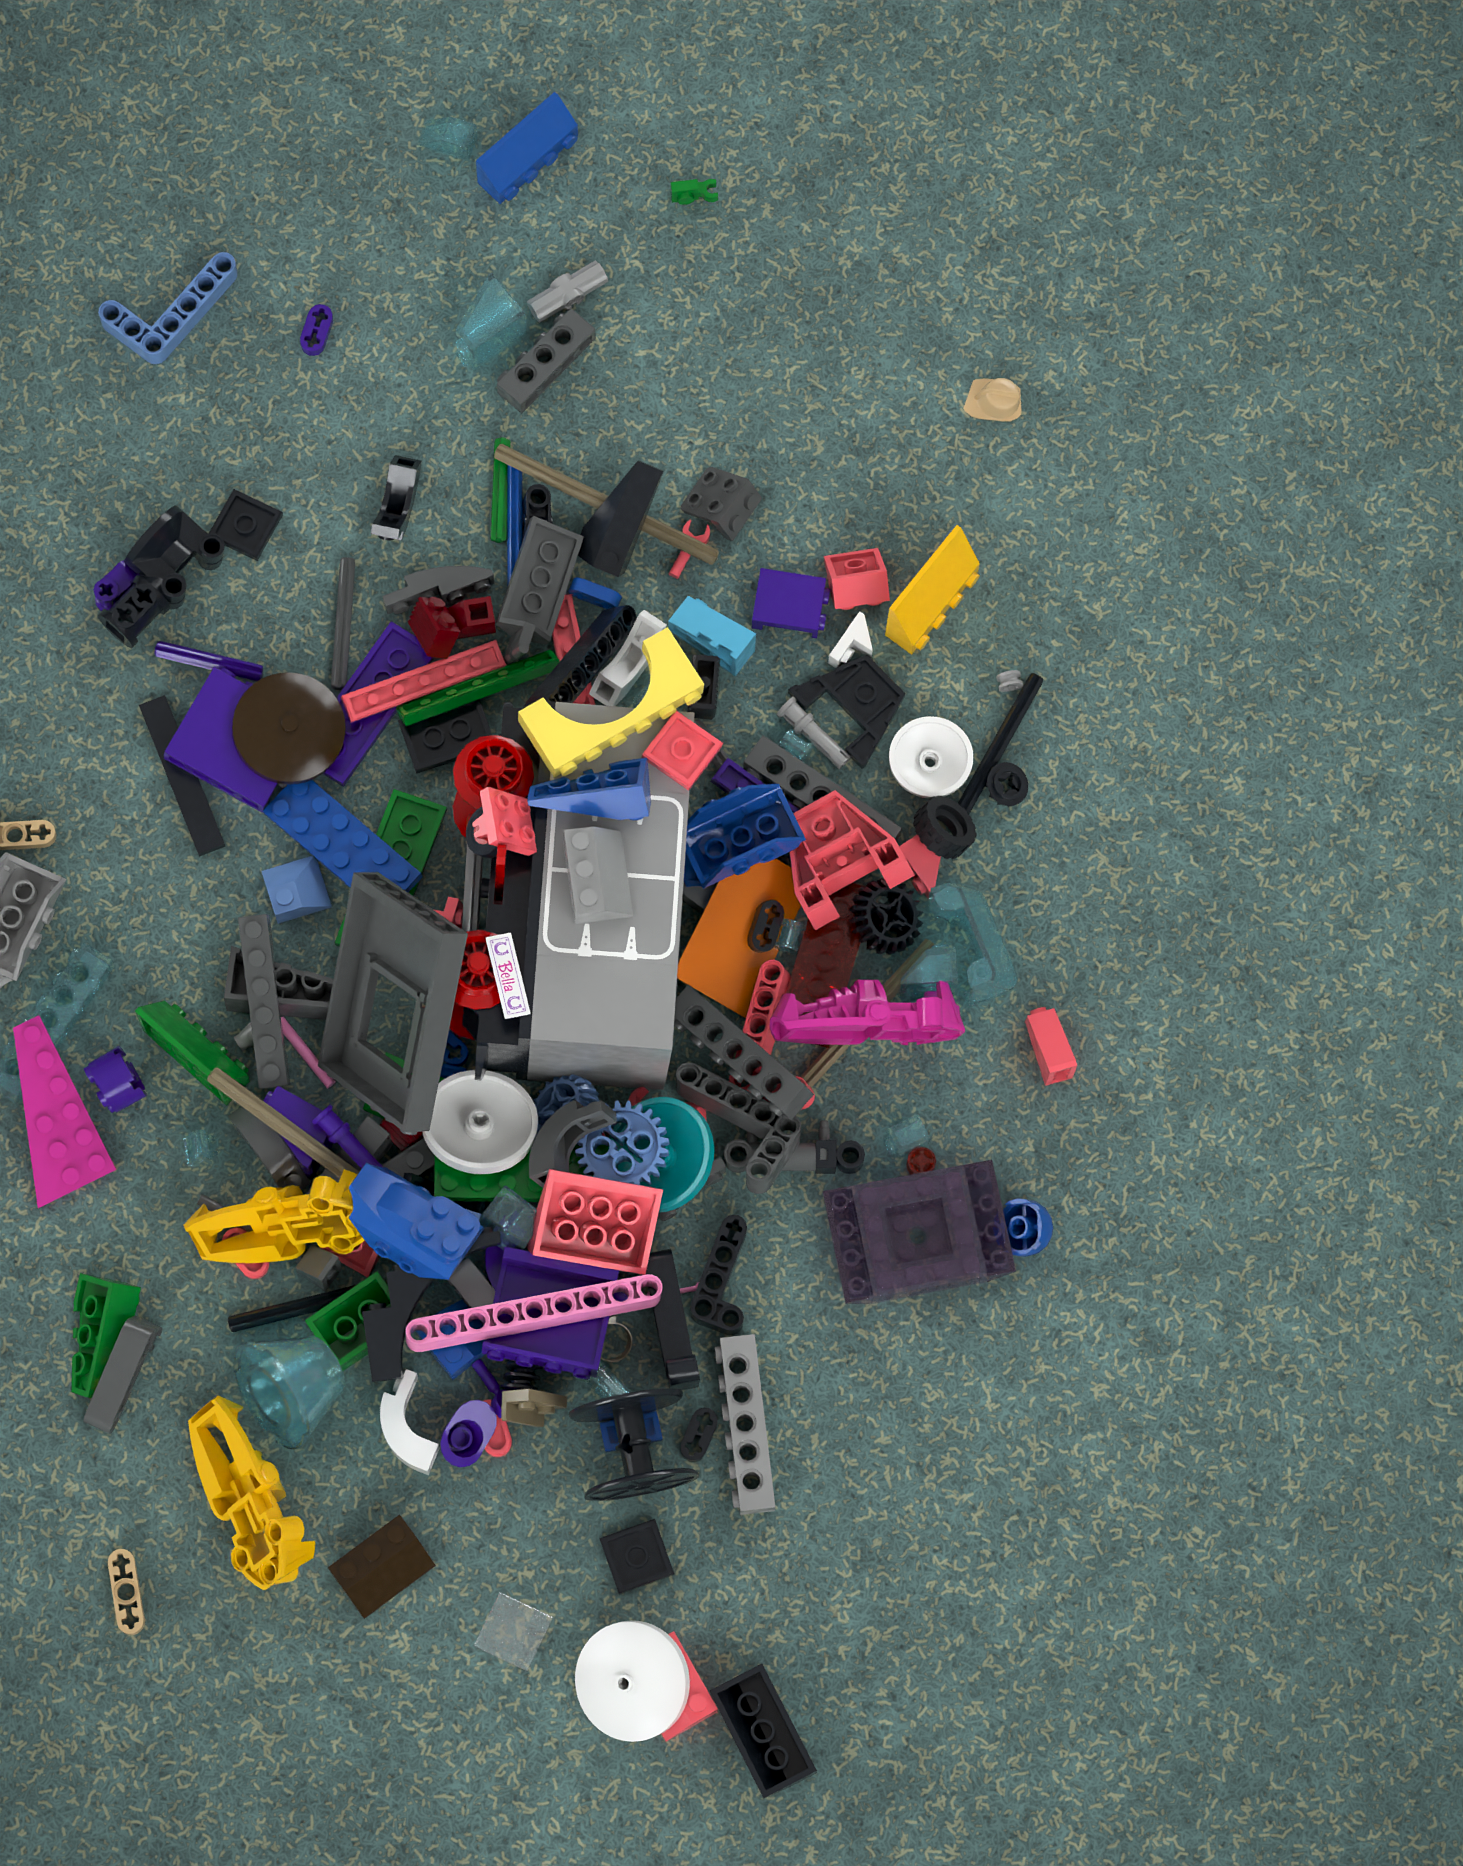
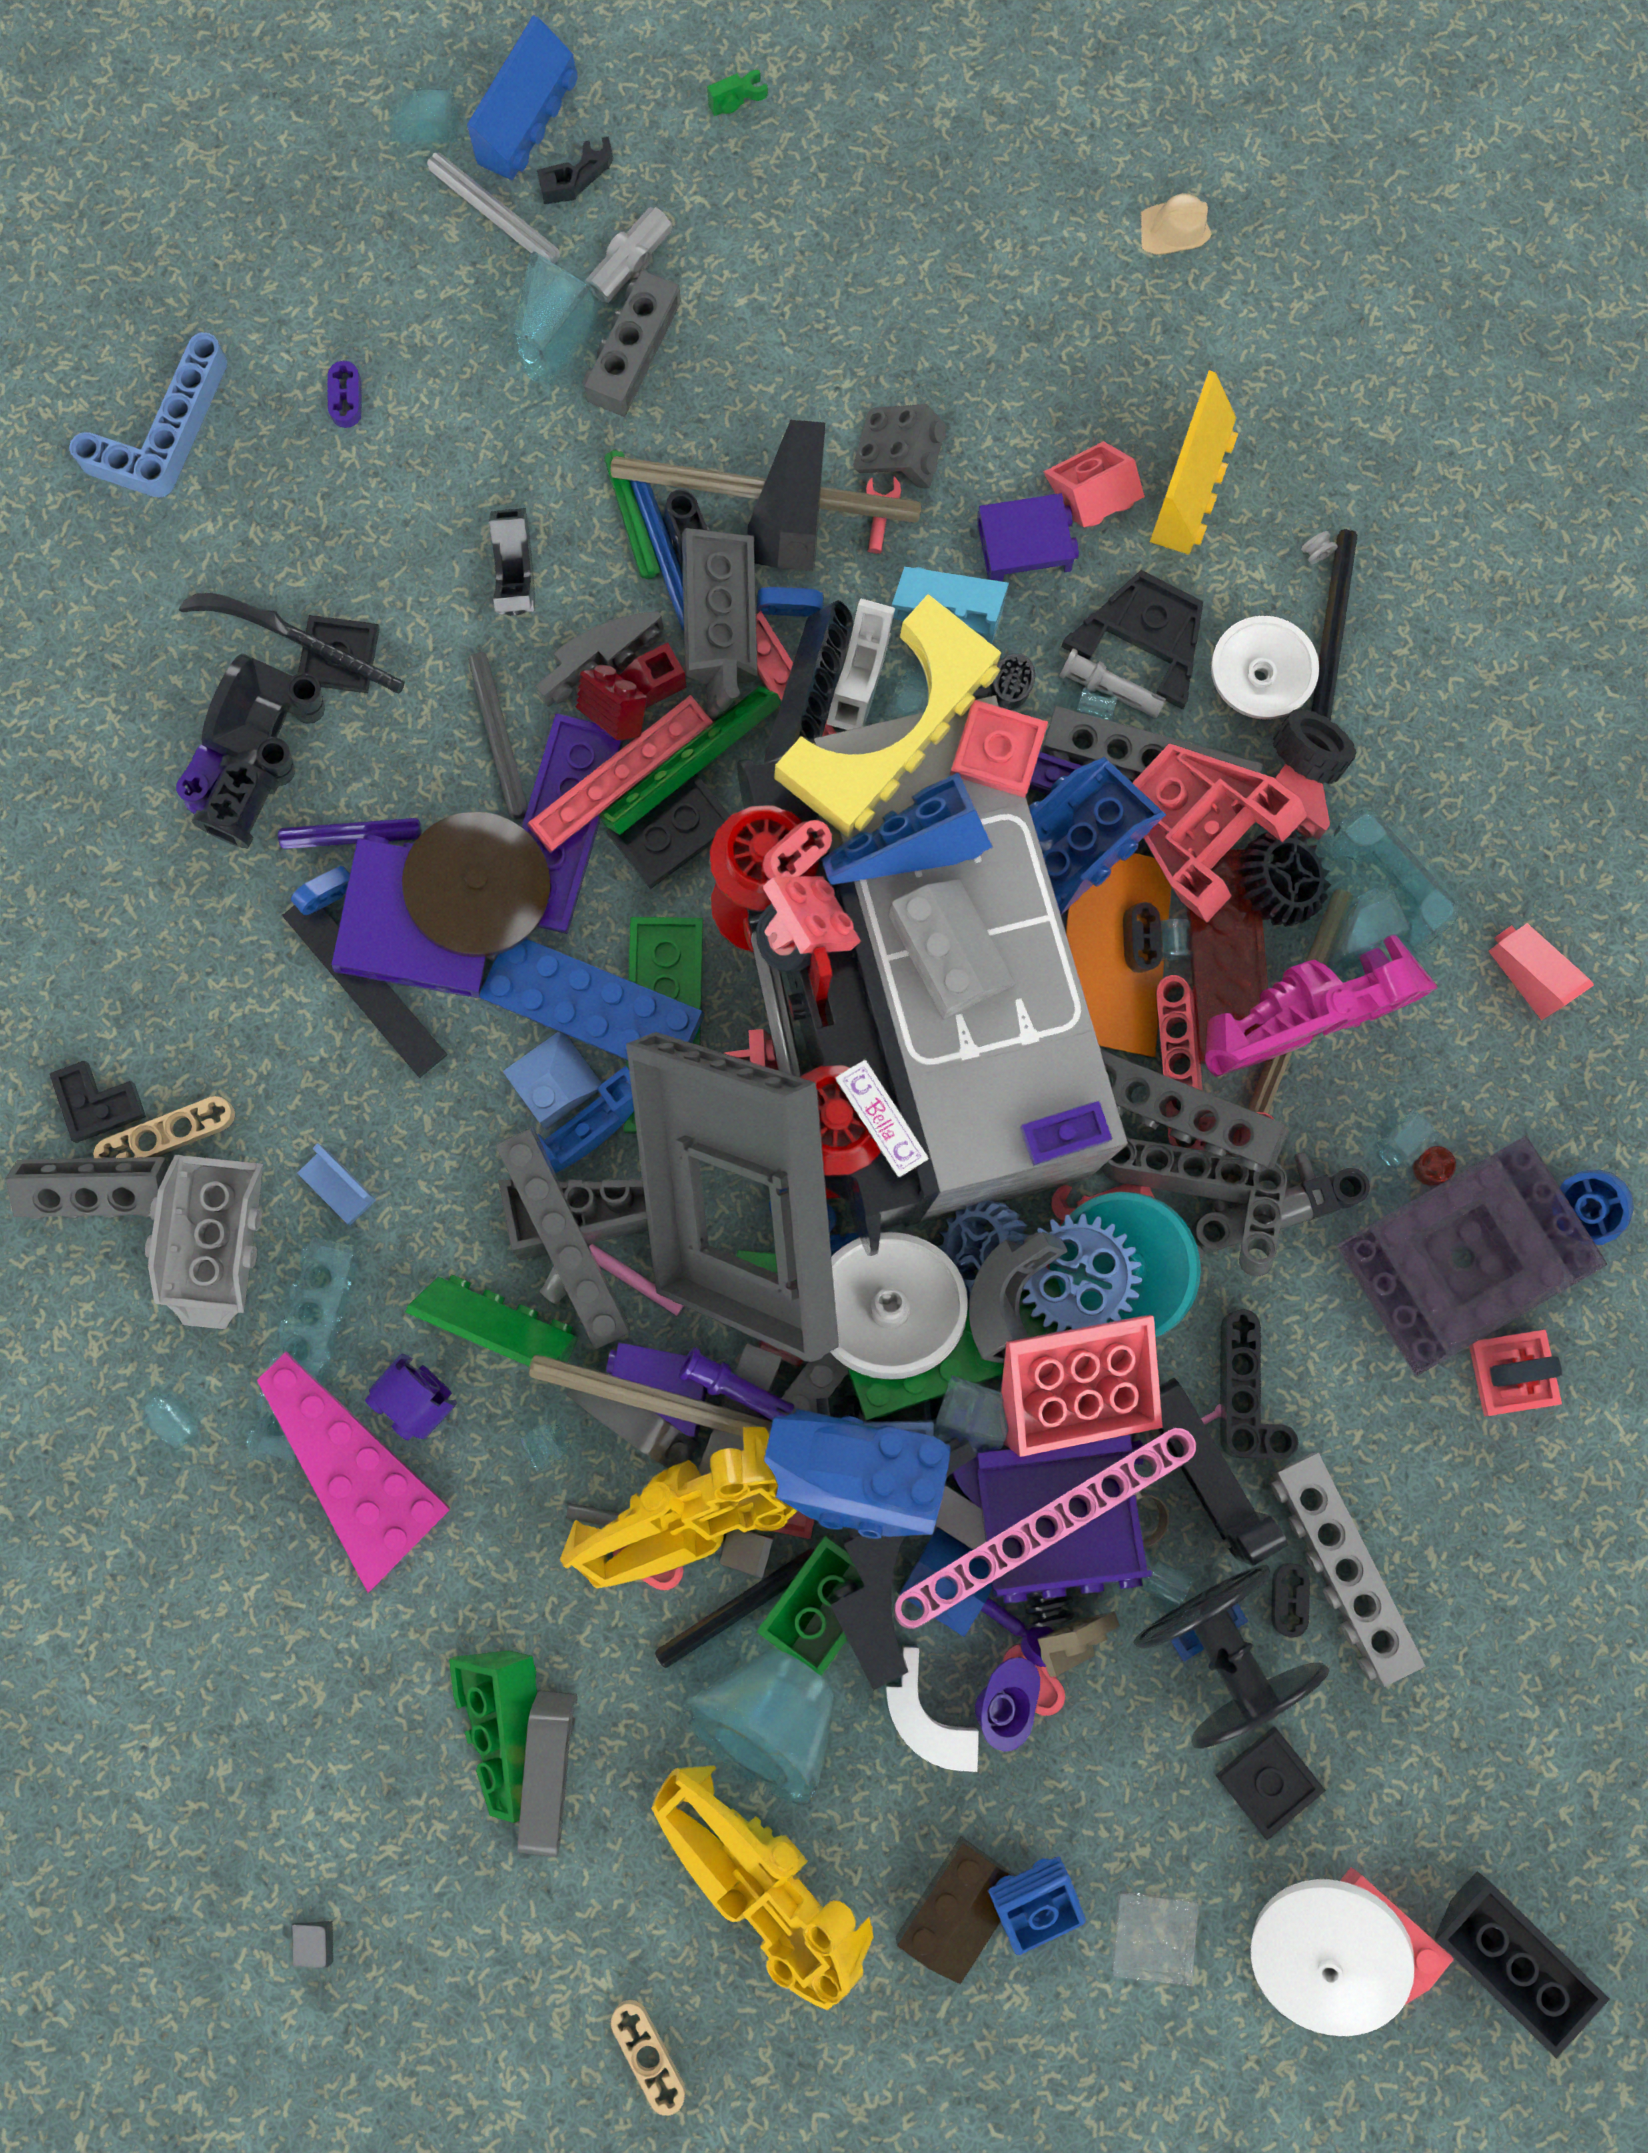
camera: 15 degrees left, 5 degrees up
(112, 913) = (336, 1185): none -> medium blue panel
(174, 696) = (321, 891): none -> blue beam
(205, 486) = (273, 622): none -> black piece
(310, 931) = (592, 1124): none -> blue slope
(440, 1561) = (1037, 1905): none -> blue brick
(477, 223) = (491, 207): none -> light grey axle
(512, 769) = (791, 844): none -> coral beam
(552, 218) = (582, 174): none -> black piece
(630, 1026) = (1066, 1133): none -> dark purple plate
(737, 710) = (1013, 681): none -> black piece
(854, 637) = (1121, 556): white slope -> none
(923, 1329) = (1516, 1373): none -> coral plate
(1017, 782) = (1371, 664): black gear -> none

